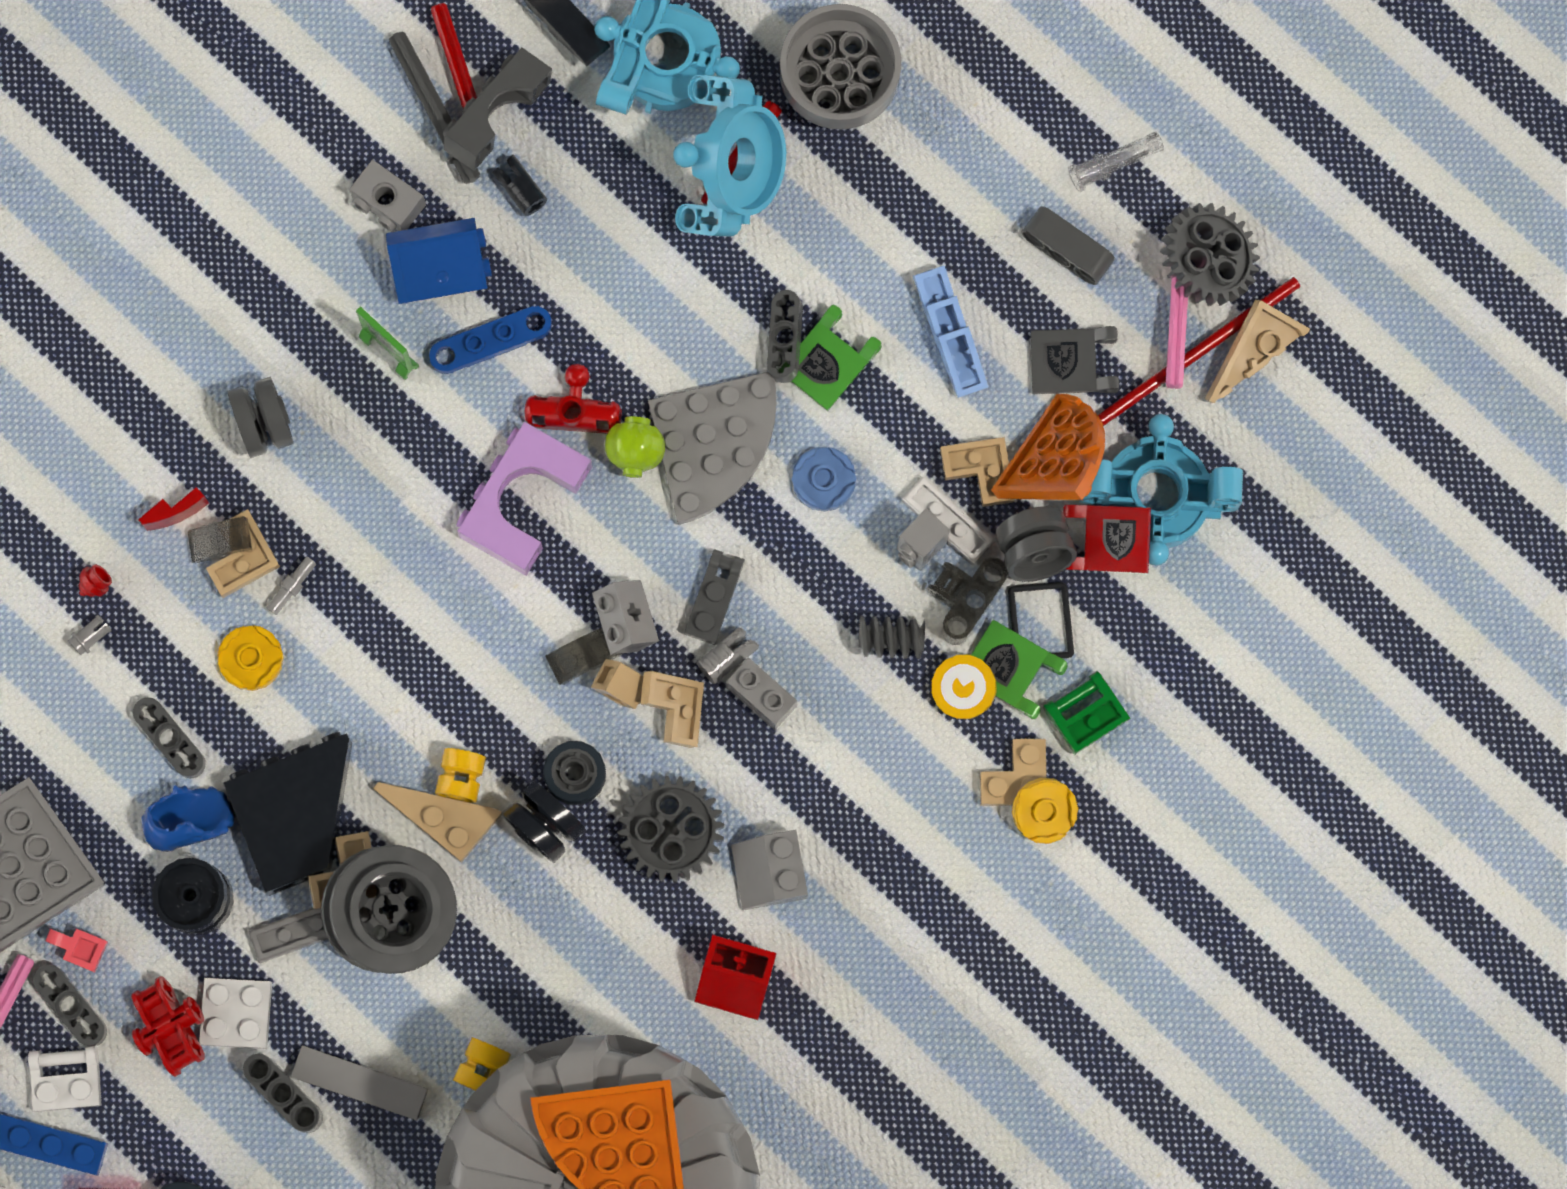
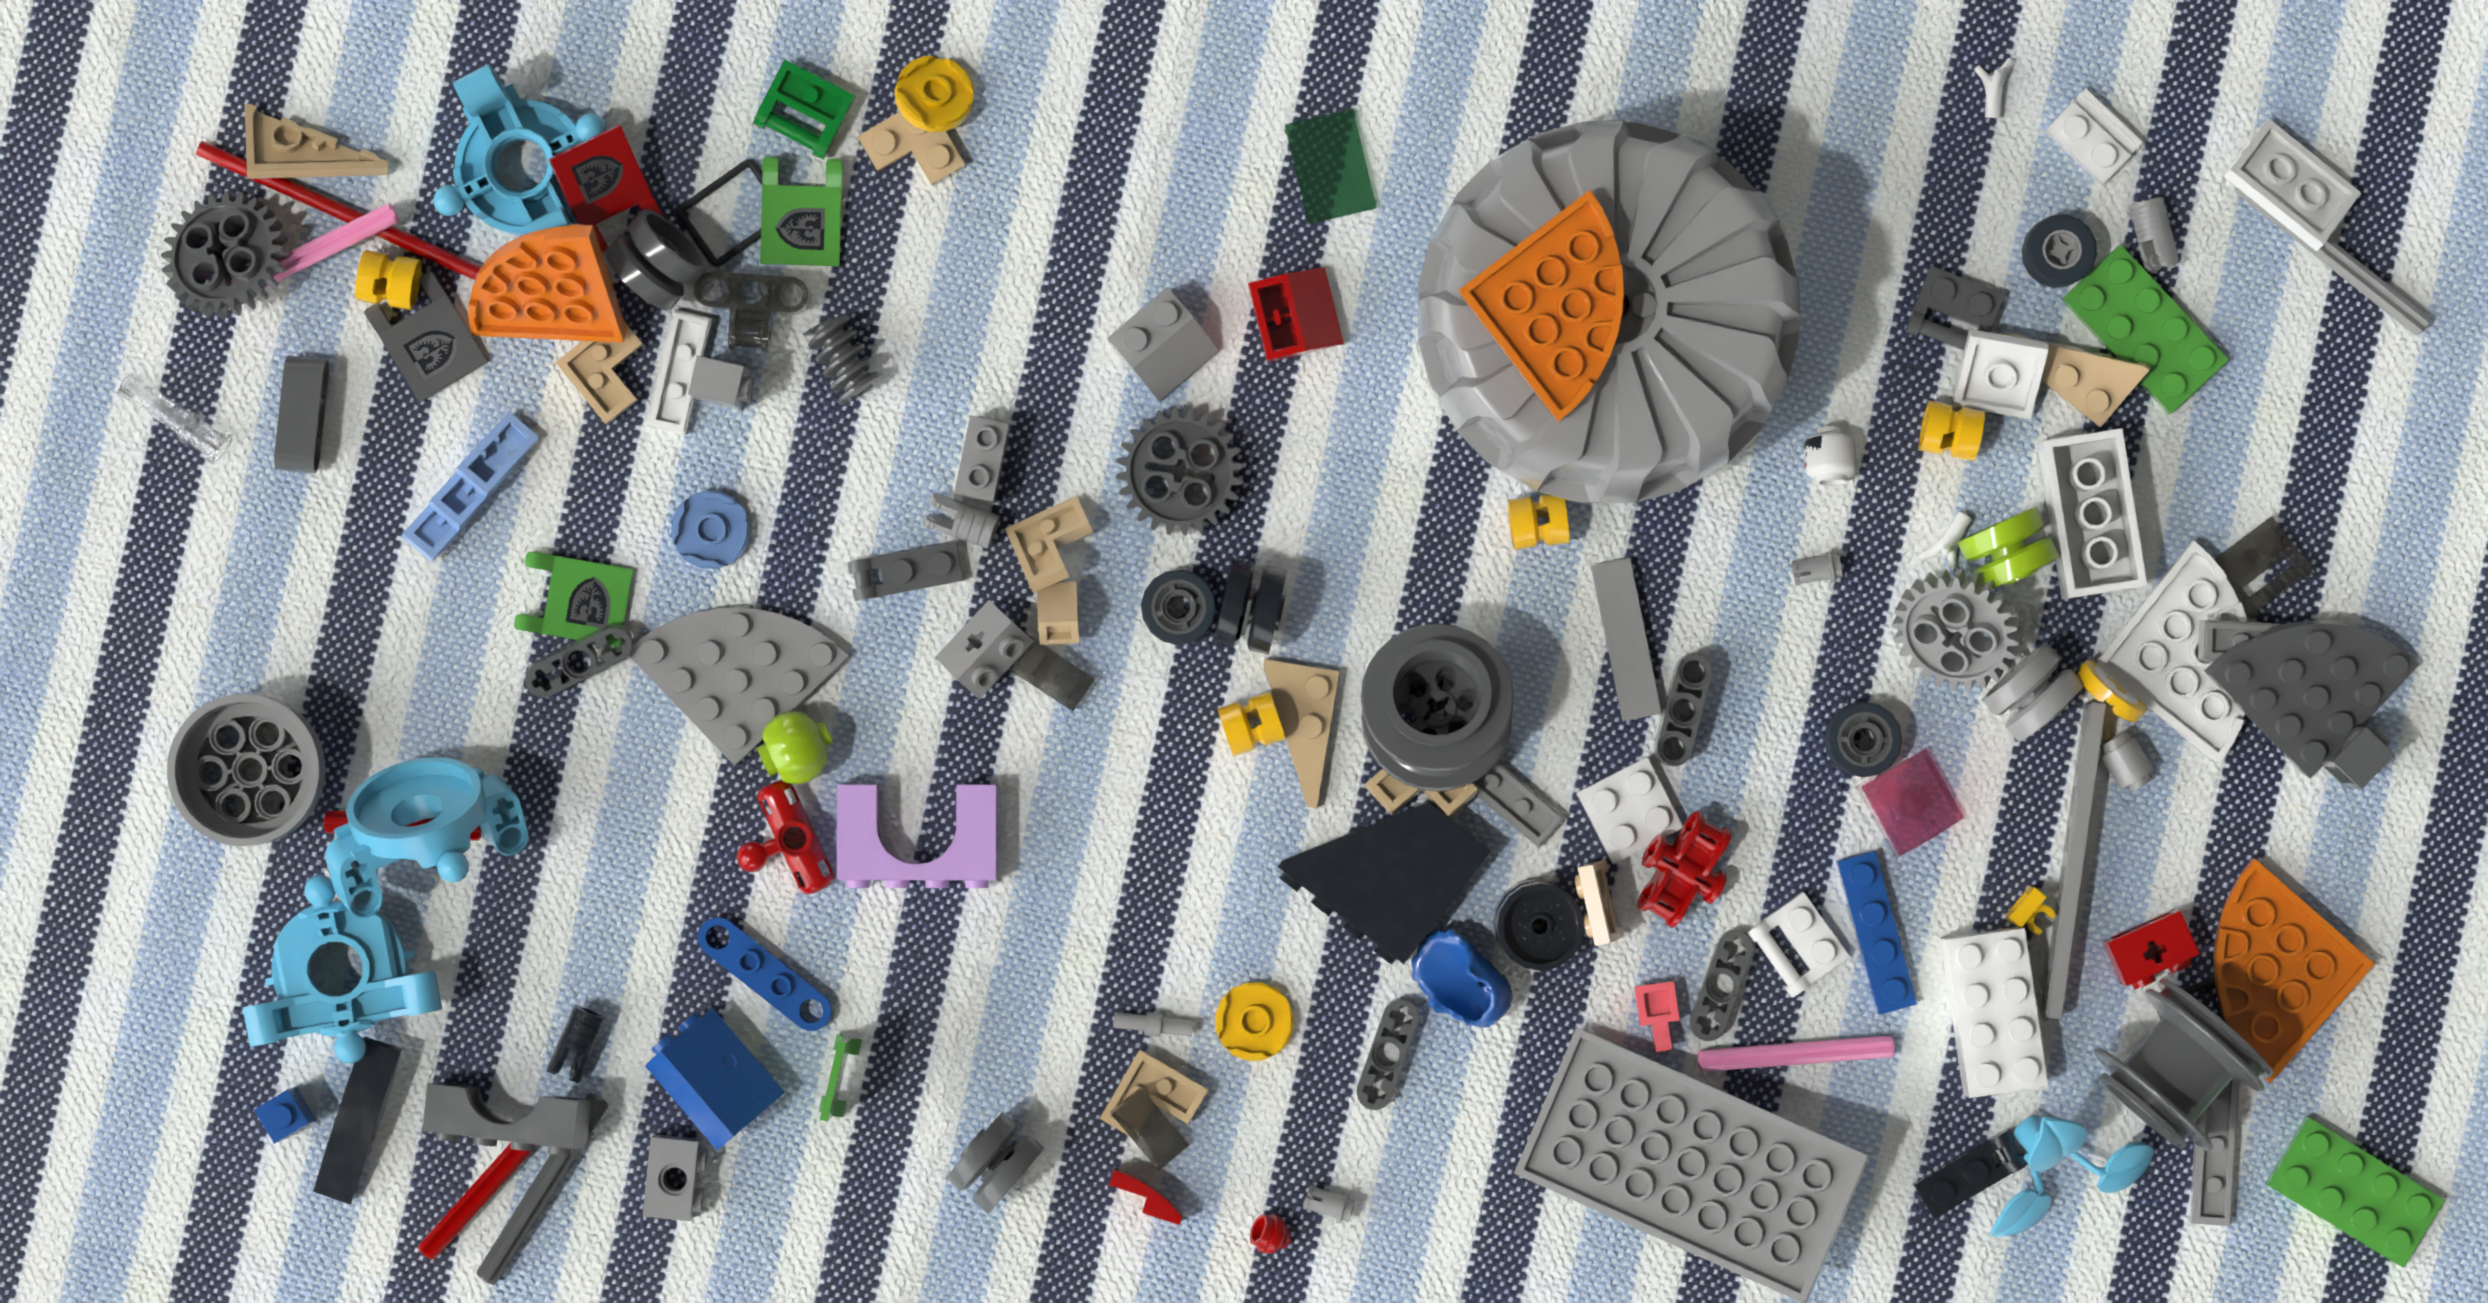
camera: 115 degrees left, 10 degrees up
(189, 950) = (1593, 887): none -> tan plate
(829, 1068) = (1330, 166): none -> clear green piece
(964, 687) = (851, 252): yellow tile -> none
(1132, 351) = (388, 280): none -> yellow wheel

